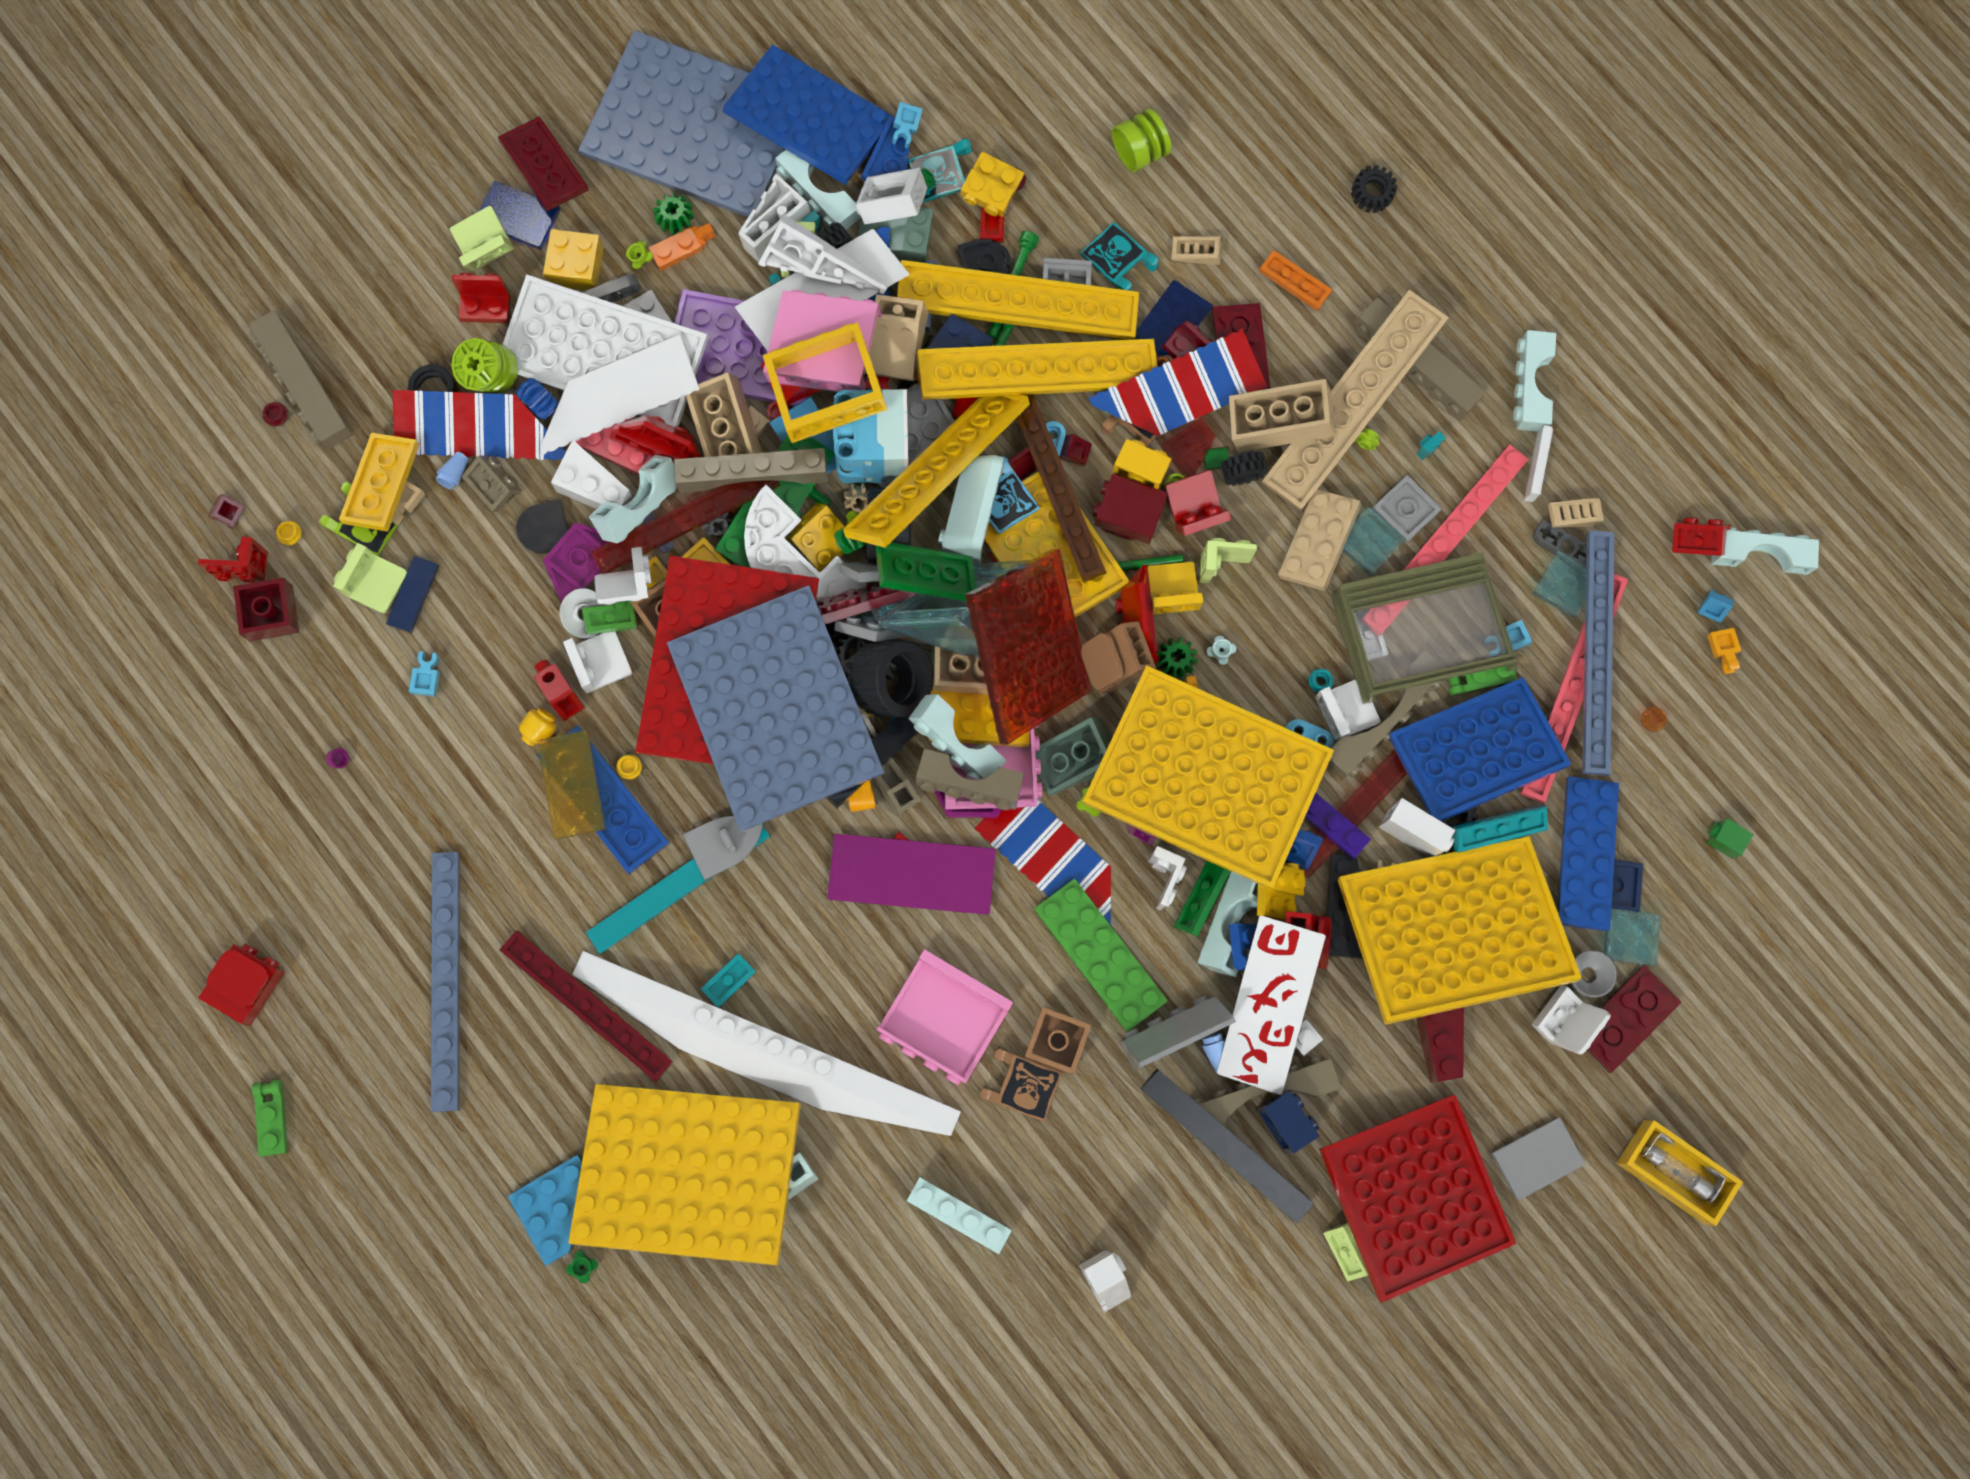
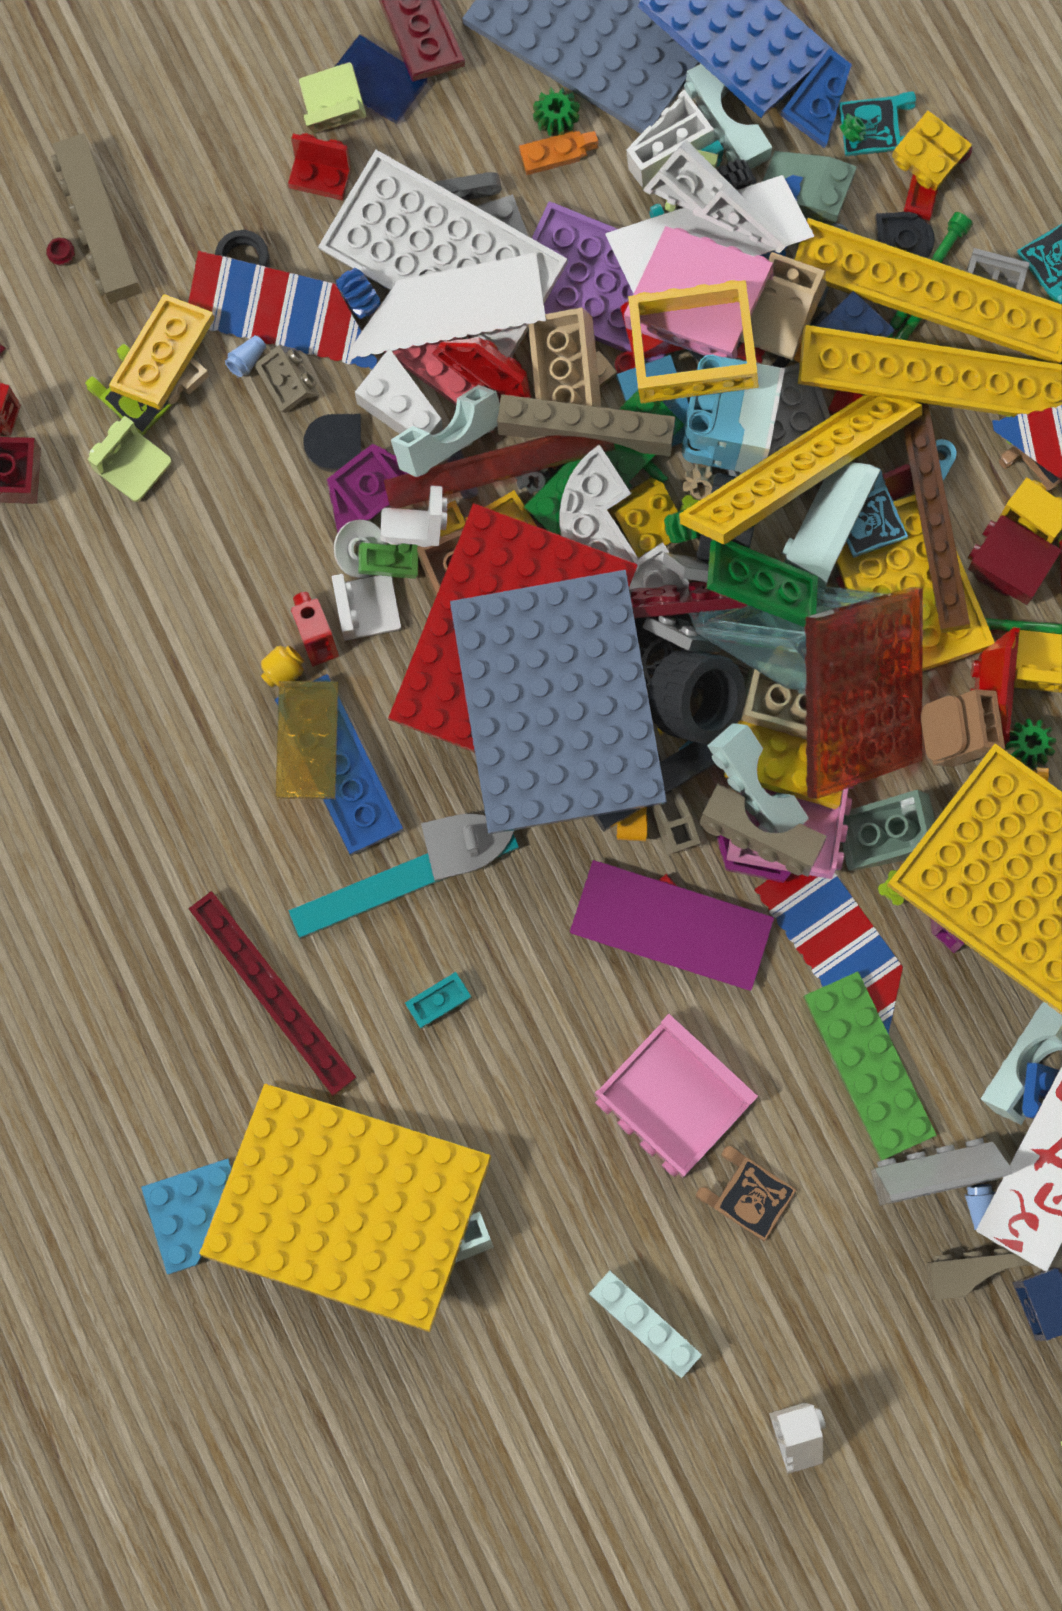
camera: 20 degrees right, 0 degrees up
(288, 533) = (48, 389): yellow plate -> none
(337, 758) = (51, 654): magenta hinge -> none
(412, 594) = (172, 487): dark blue tile -> none
(425, 679) = (167, 585): medium azure plate -> none
(445, 983) = (120, 932): sand blue plate -> none
(484, 366) = (307, 244): lime wheel -> none
(573, 259) = (431, 142): yellow brick -> none
(574, 1267) = (207, 1294): green plate -> none
(629, 767) = (375, 734): yellow plate -> none
(634, 250) = (506, 144): lime plate -> none
(762, 1052) = (461, 1091): white wedge -> none
(891, 196) = (812, 141): white window -> none
(906, 122) = (847, 58): medium azure plate -> none
(1057, 1041) = (799, 1152): medium nougat brick -> none
(1075, 450) = (963, 478): dark red slope -> none
(1163, 861) = (968, 973): white bracket -> none
(1201, 899) = (1001, 1026): green plate -> none
(1226, 1145) = (970, 1315): black tile -> none

